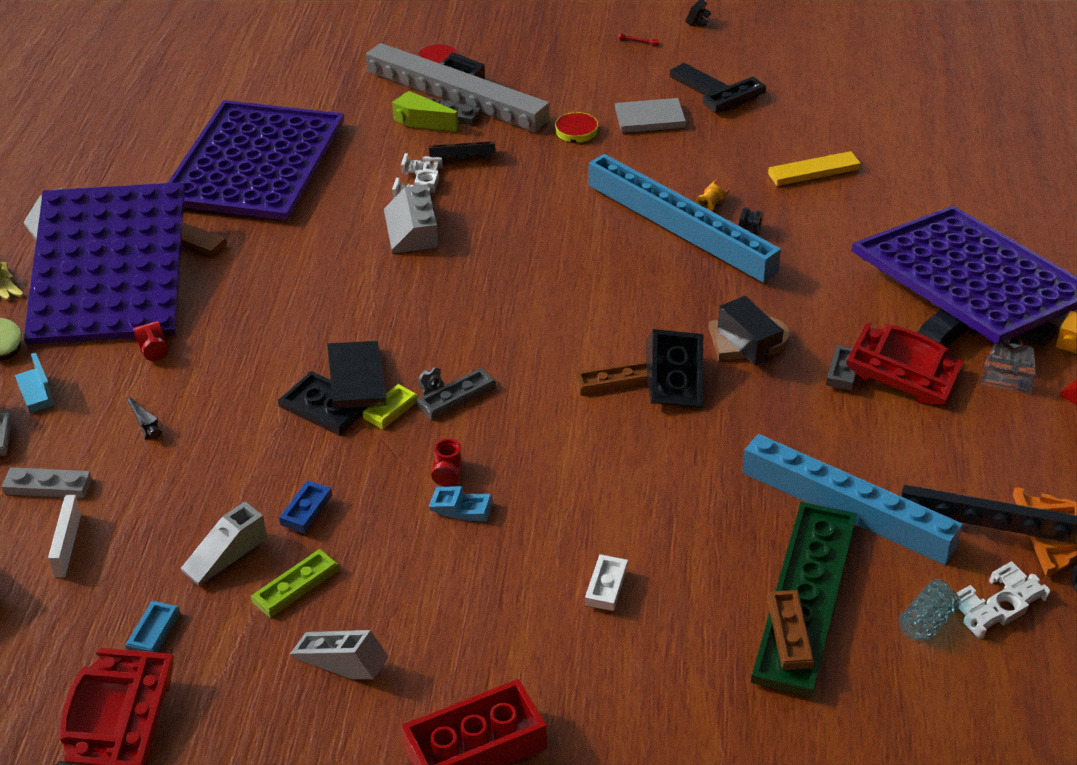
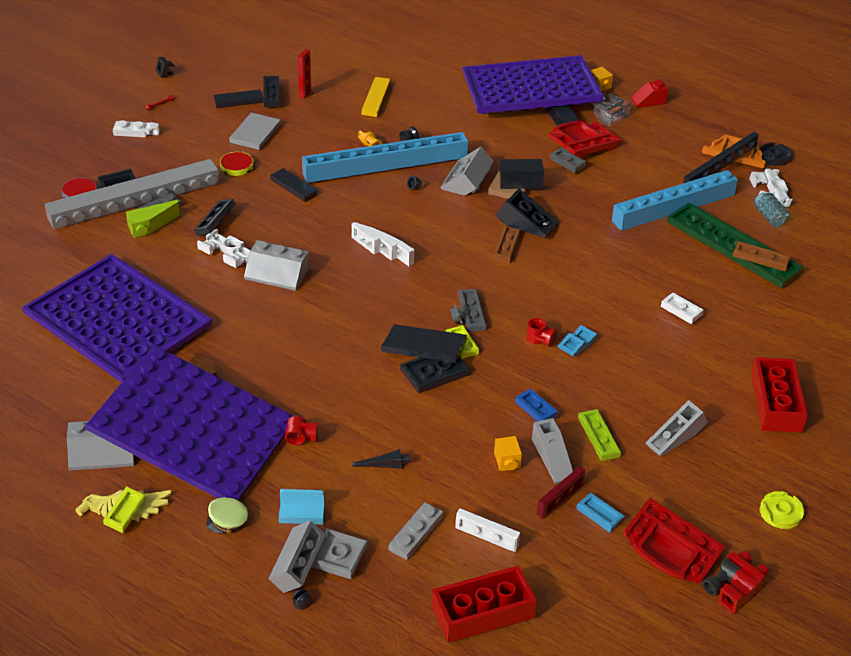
camera: 65 degrees left, 0 degrees up
(161, 577) = (560, 492): none -> dark red tile
(202, 508) = (507, 453): none -> light orange brick
(514, 279) = (378, 241): none -> white slope
(572, 44) = (135, 129): none -> white hinge
(574, 179) = (293, 184): none -> black tile
(663, 260) = (414, 183): none -> black hinge
(711, 292) = (468, 173): none -> light grey slope
(767, 92) = (304, 73): none -> red tile

